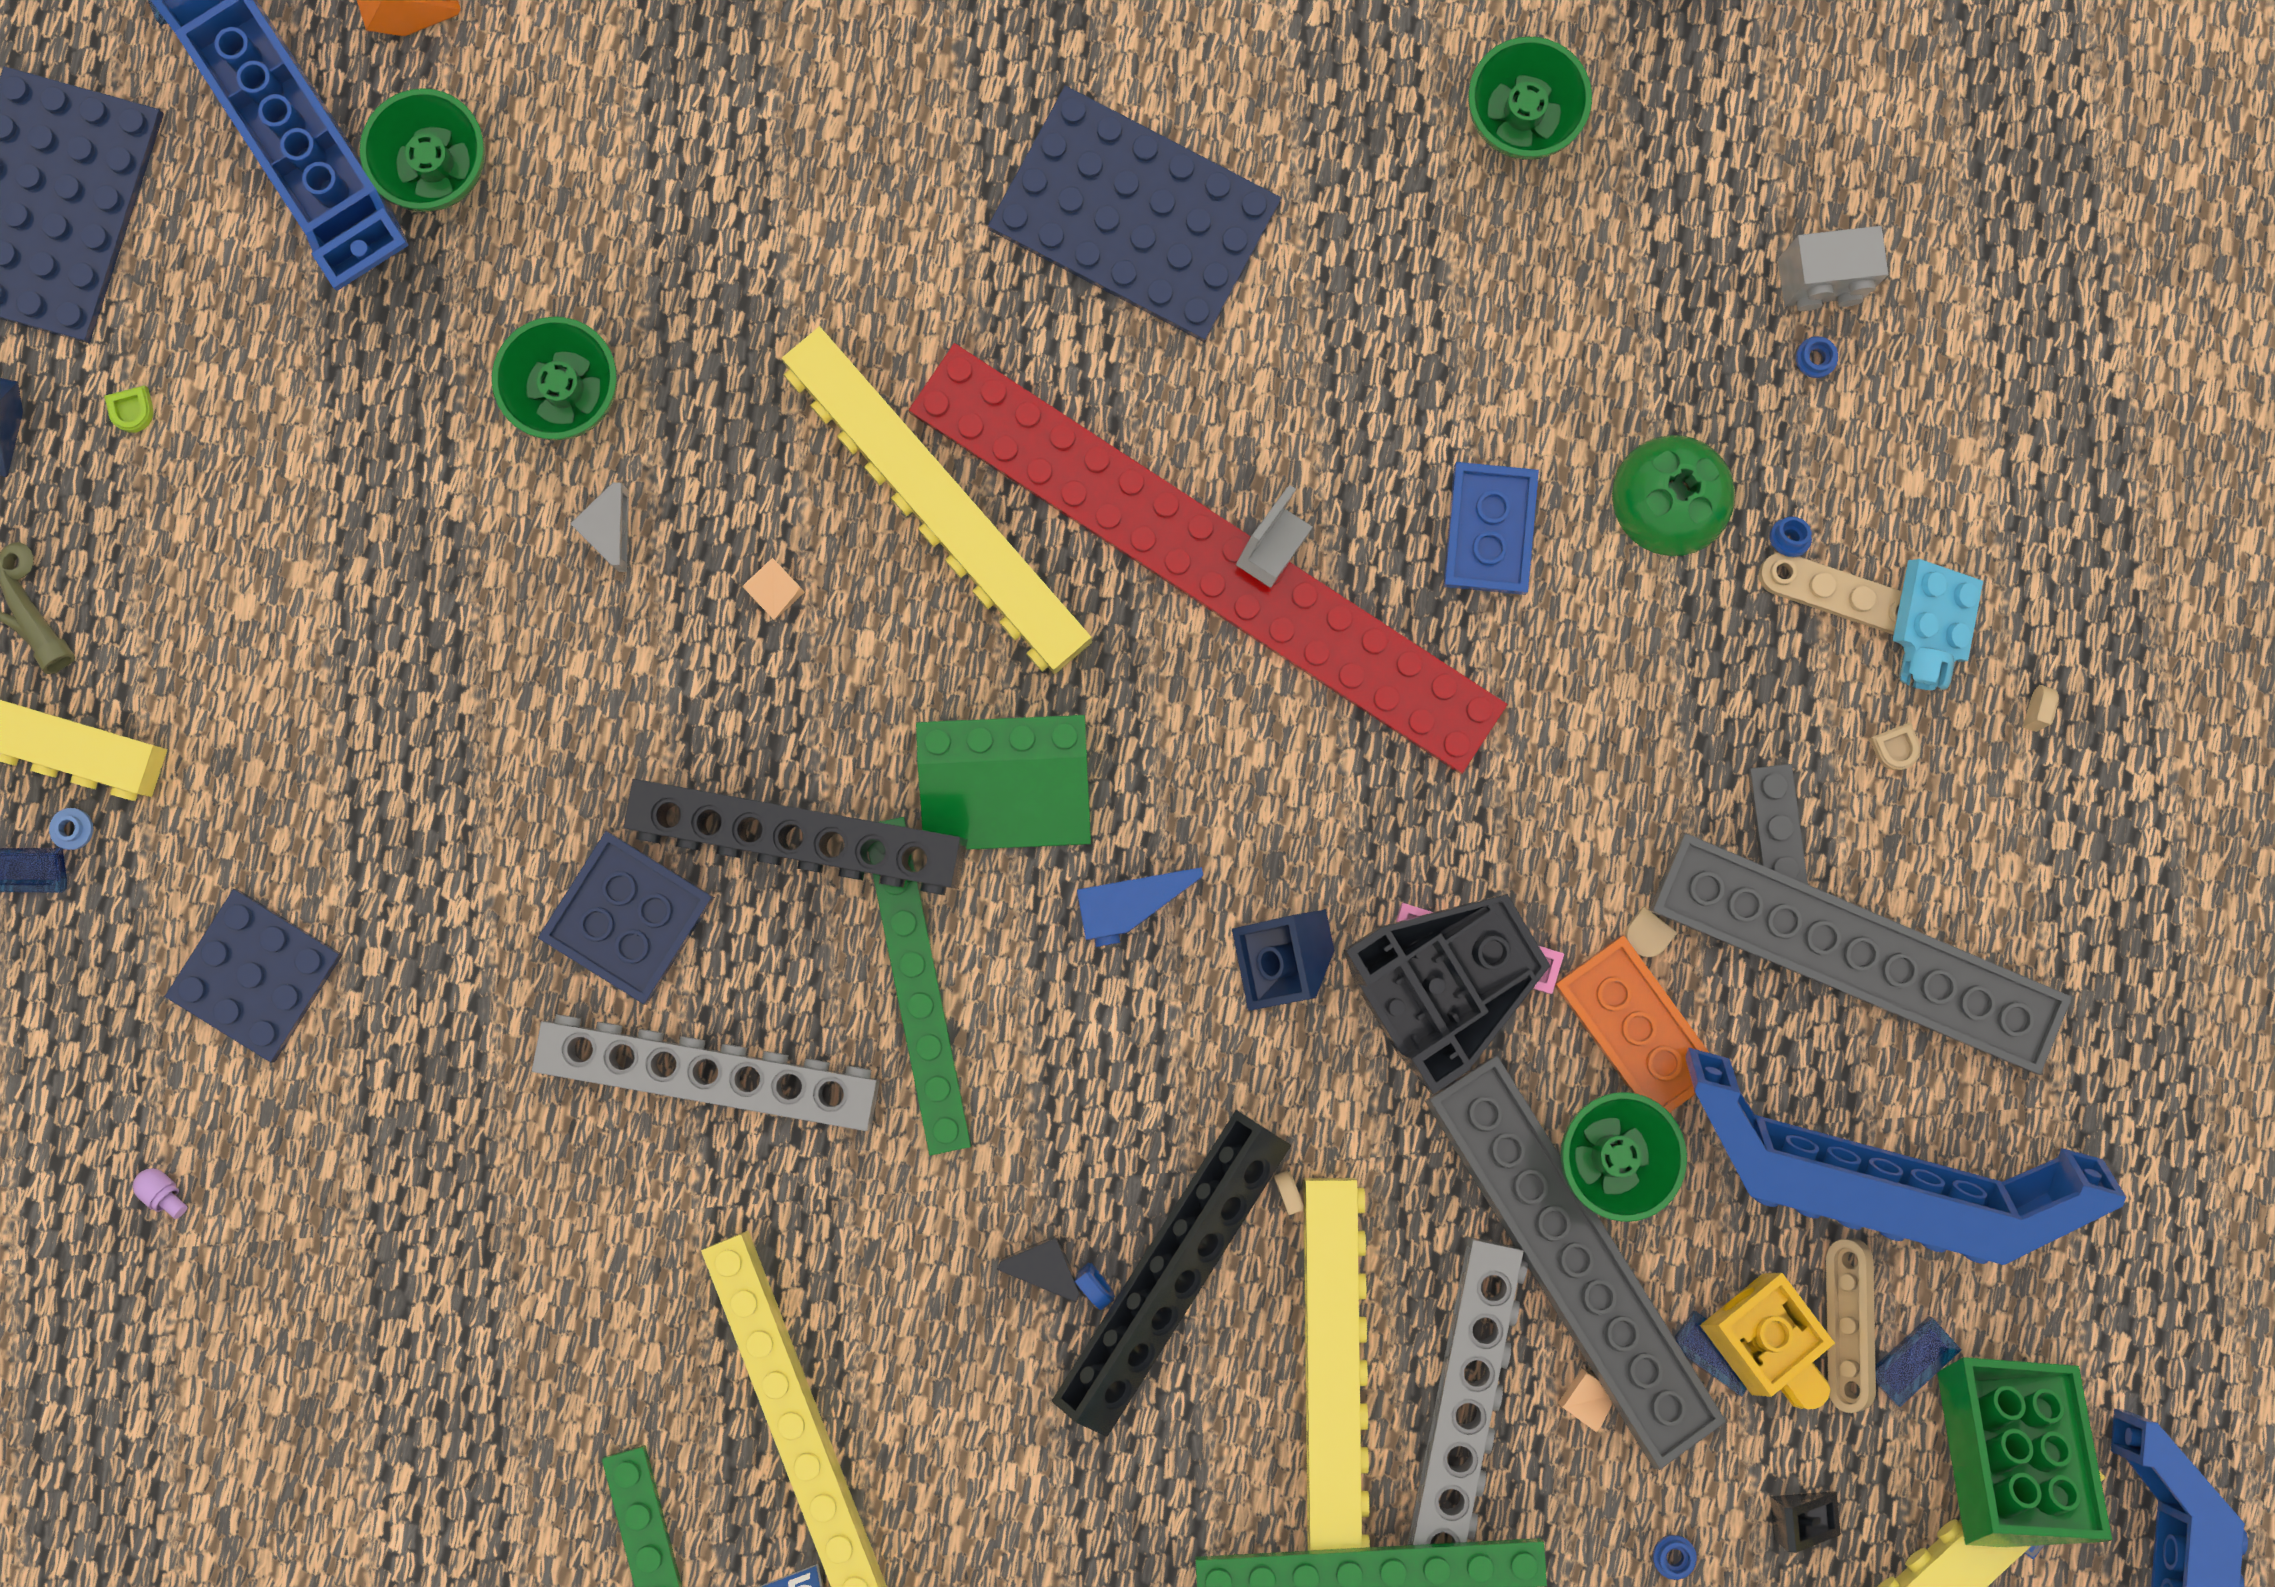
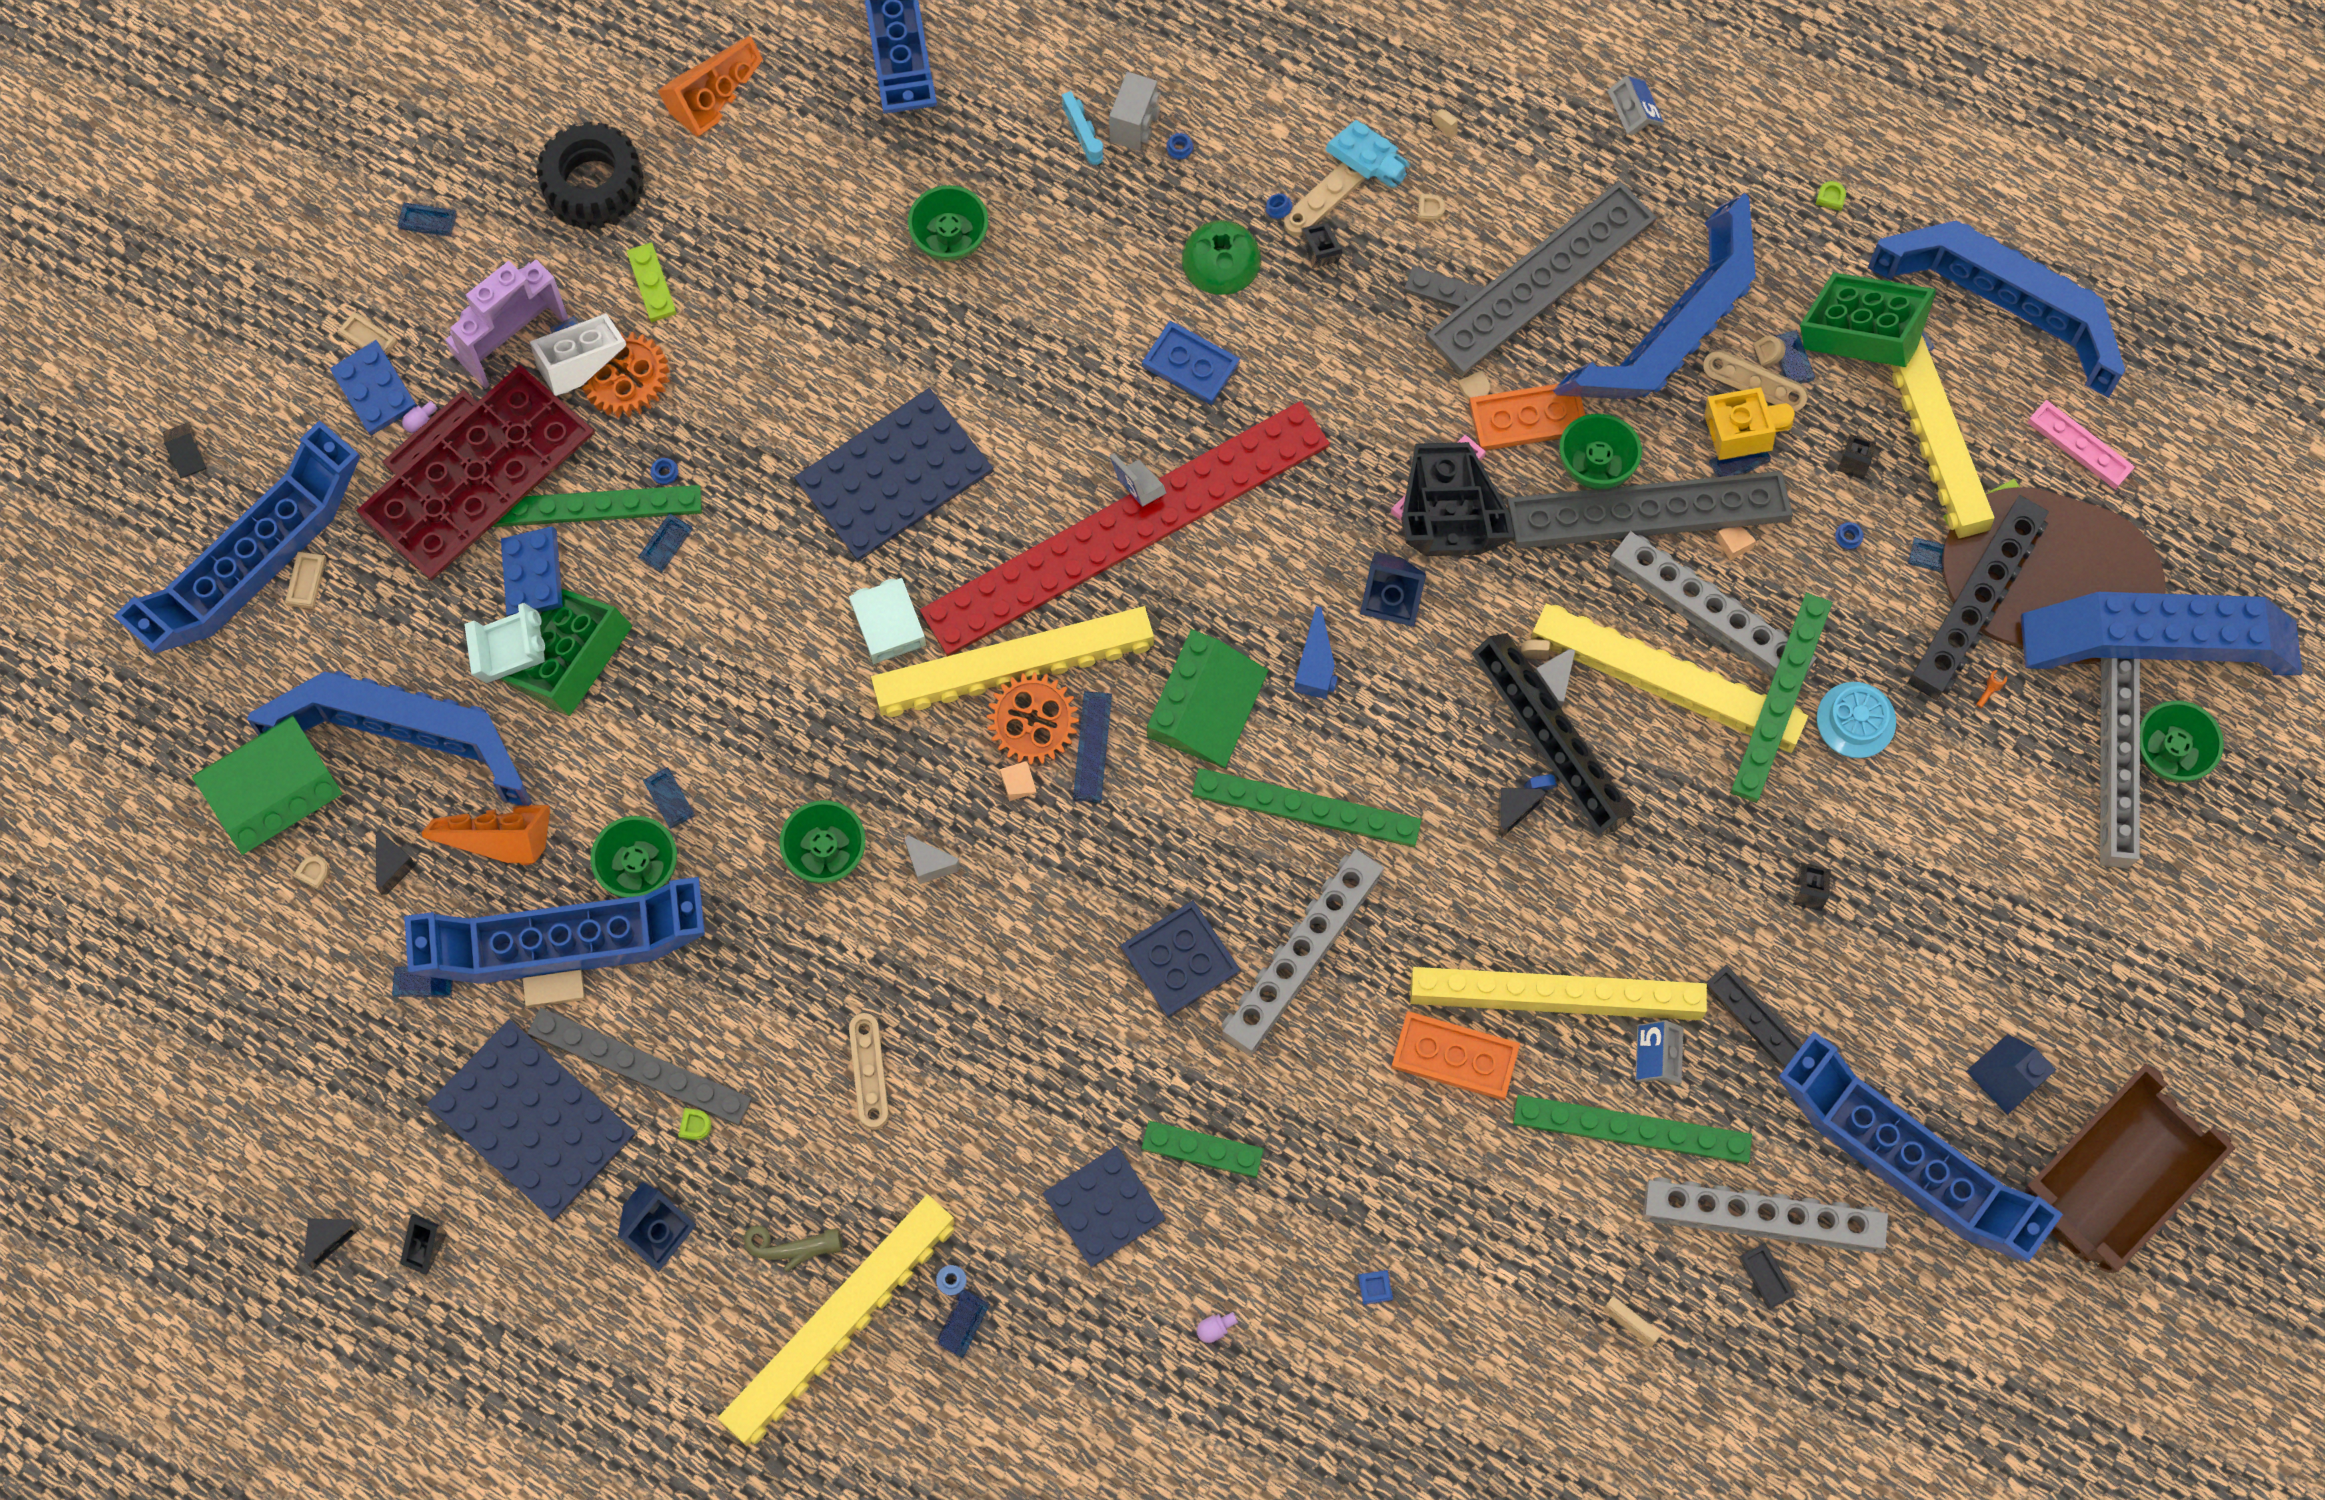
camera: 65 degrees left, 15 degrees down
(173, 303) = (640, 1066): none -> dark grey plate
(224, 145) = (554, 988): none -> tan tile
(293, 591) = (868, 1071): none -> tan plate
(303, 1374) = (1375, 1287): none -> blue tile
(385, 1066) = (1202, 1149): none -> green plate
(545, 154) = (668, 797): none -> clear blue tile
(651, 801) = (1233, 744): black brick -> none
(658, 1341) = (1455, 1055): none -> orange plate
(870, 663) = (1092, 747): none -> clear blue tile
(899, 558) = (1040, 694): none -> orange gear
(915, 306) = (887, 620): none -> light aqua panel
(1260, 1240) = (1556, 675): none -> light grey slope
(1760, 621) = (1321, 245): none -> black slope
(1775, 211) = (1083, 129): none -> medium azure plate
(1908, 1325) = (1769, 350): none -> tan tile
(2205, 1310) = (1831, 195): none -> lime tile
(2209, 964) = (1634, 104): none -> light grey panel

